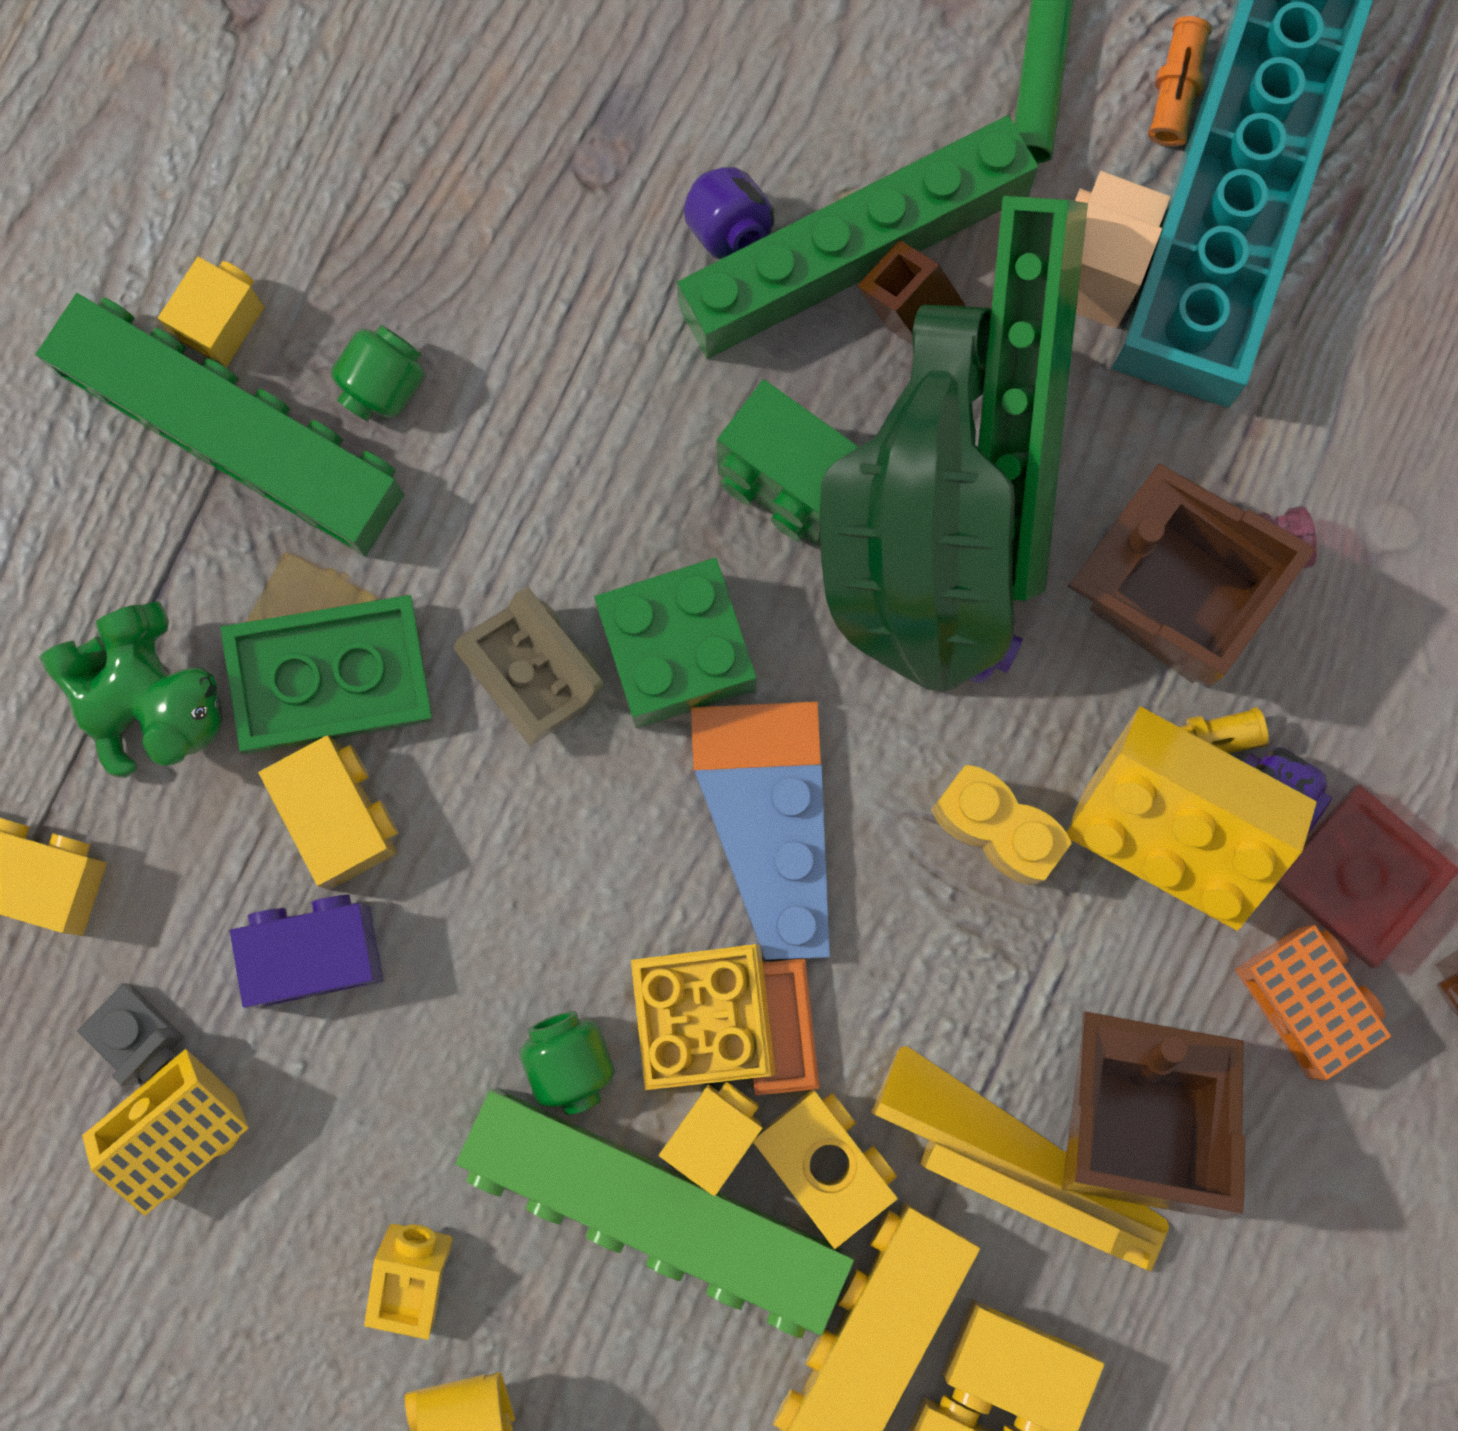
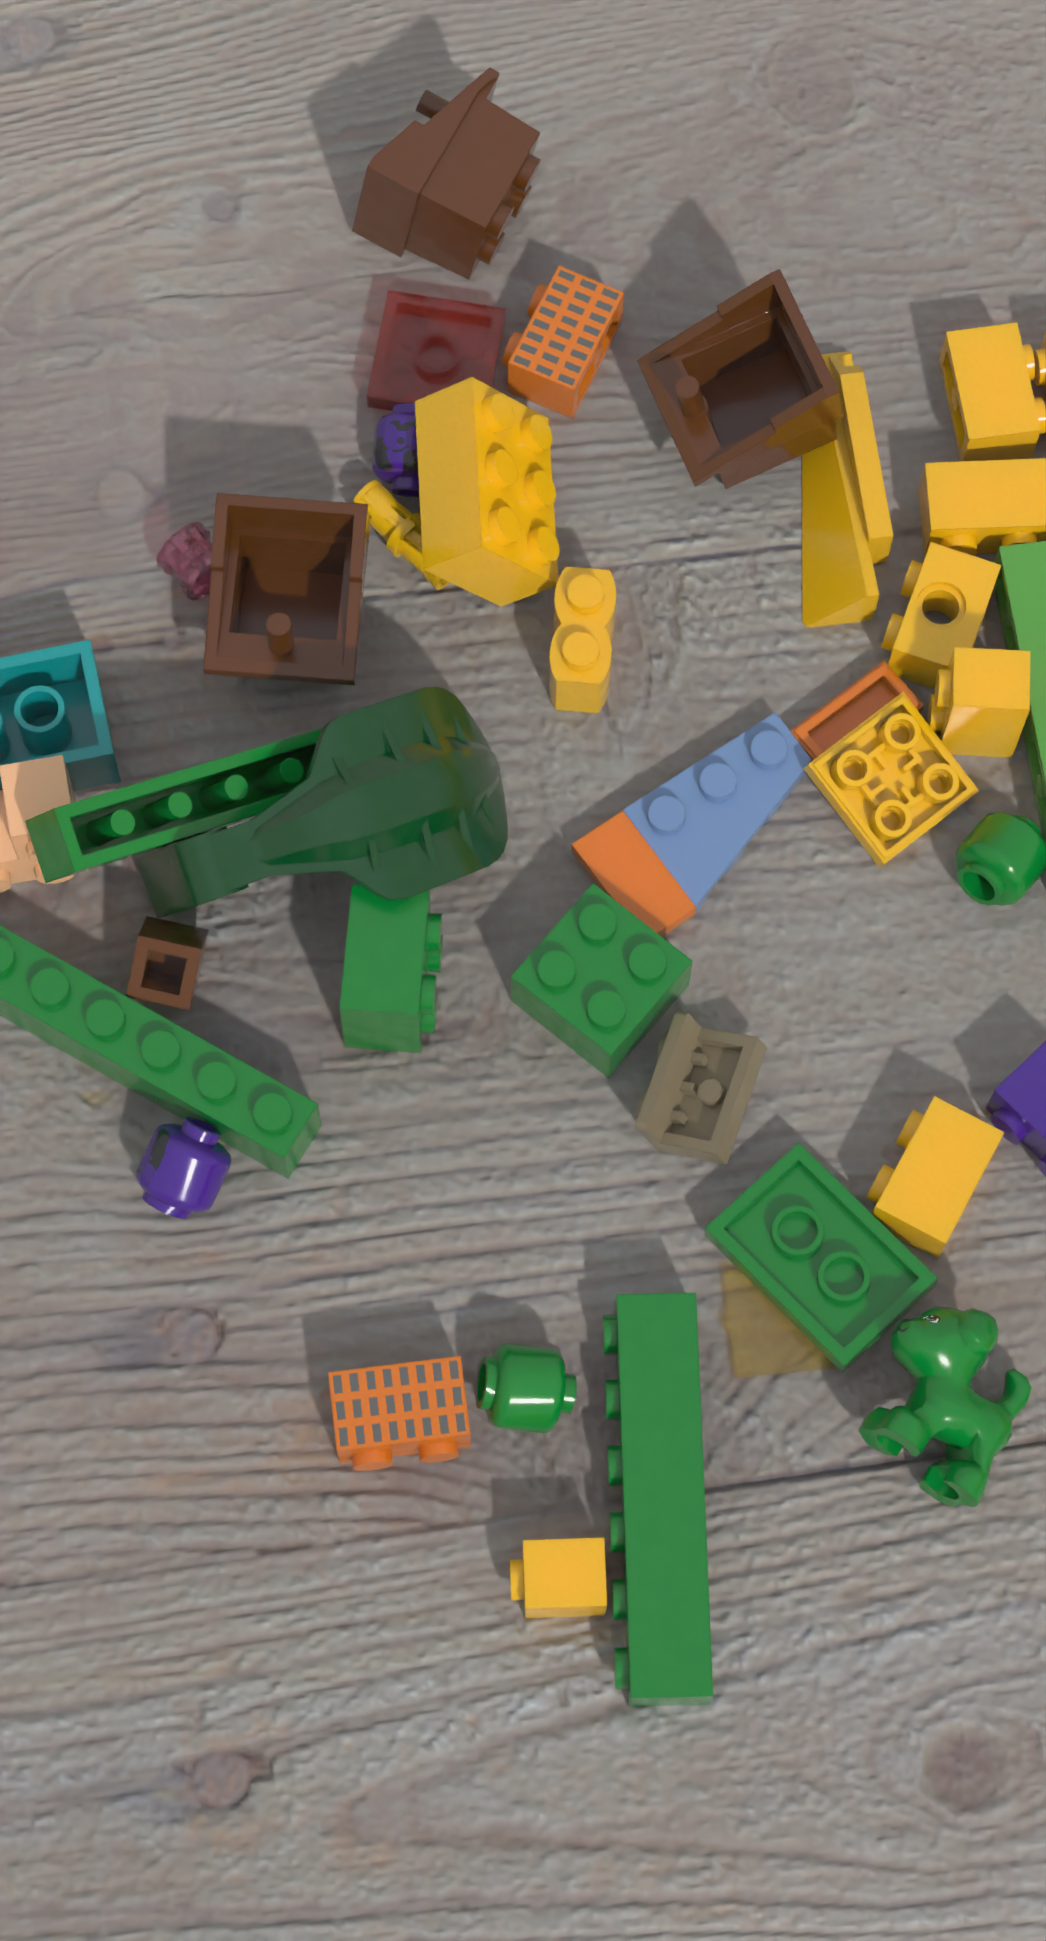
camera: 125 degrees left, 10 degrees down
(423, 267) = (400, 1412): none -> orange brick

